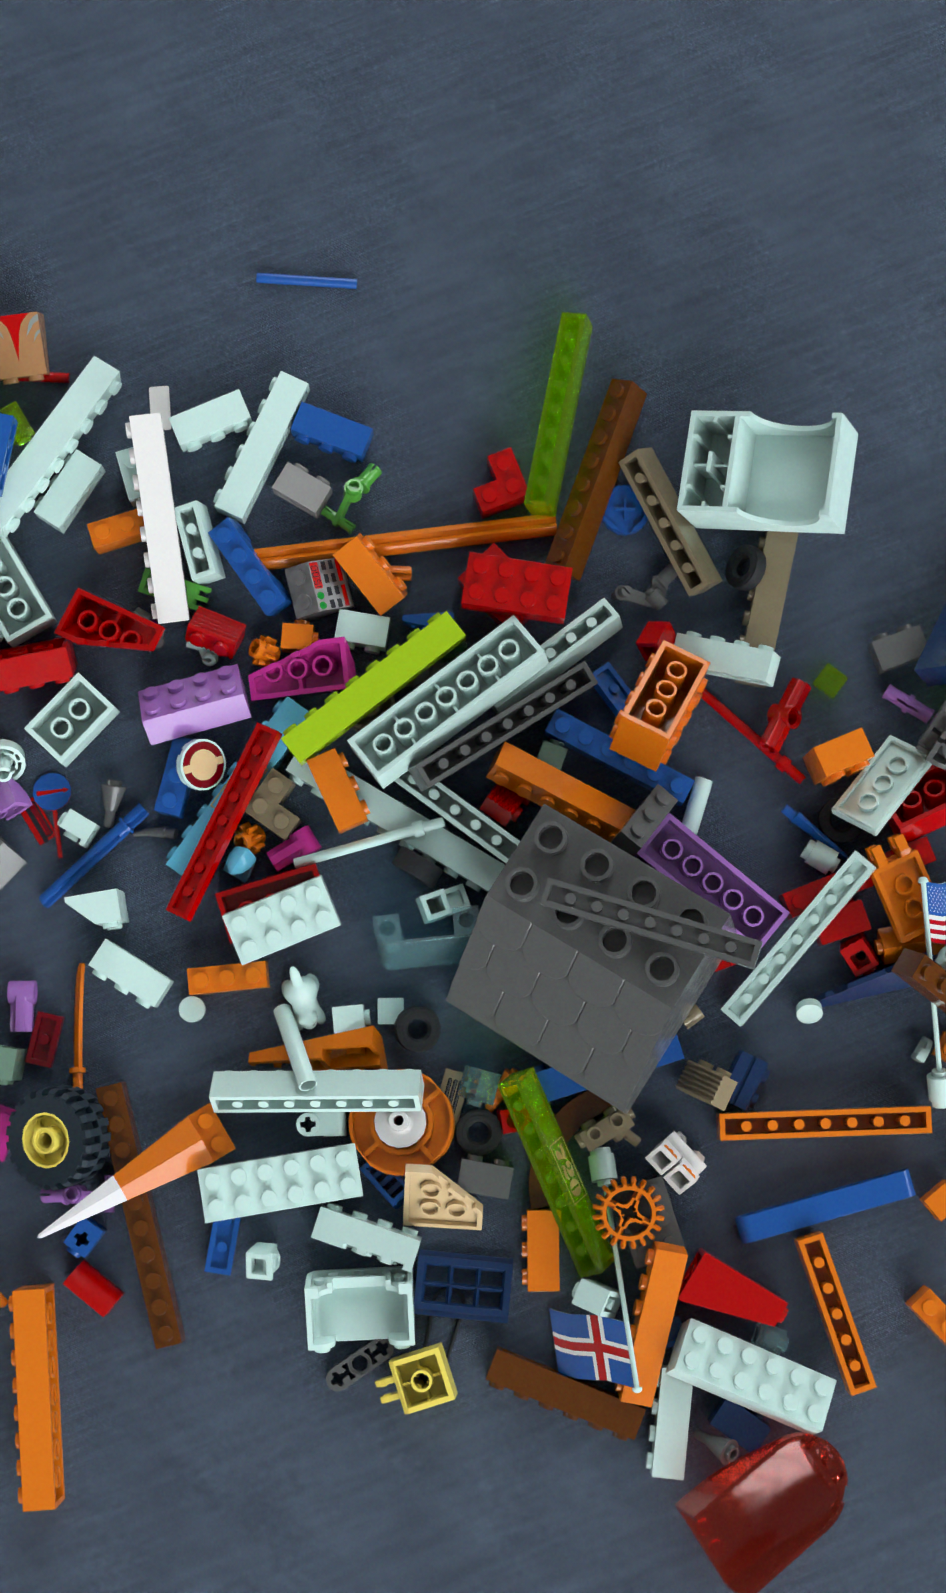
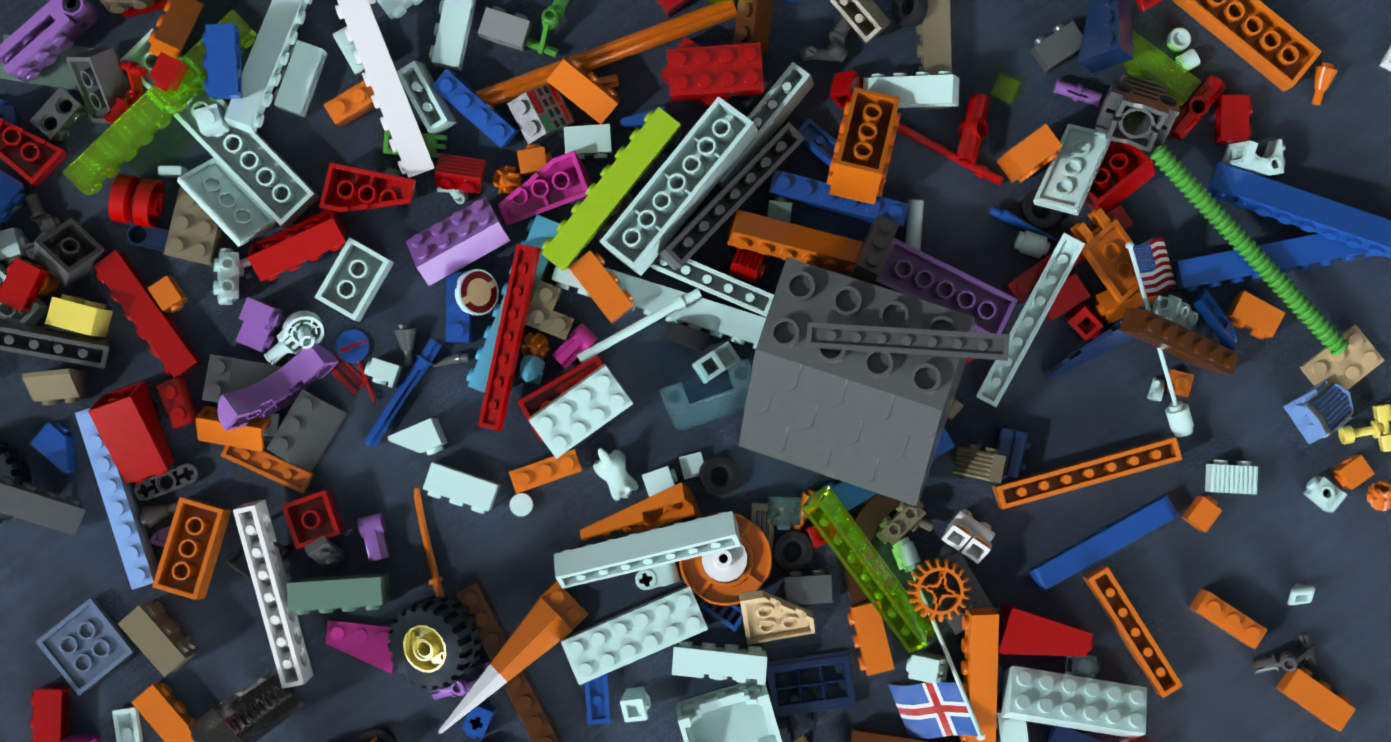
camera: 15 degrees left, 5 degrees up
(44, 1039) = (401, 561): dark red plate -> none
(295, 1047) = (618, 517): light aqua piece -> none
(809, 1010) = (1052, 379): light aqua tile -> none

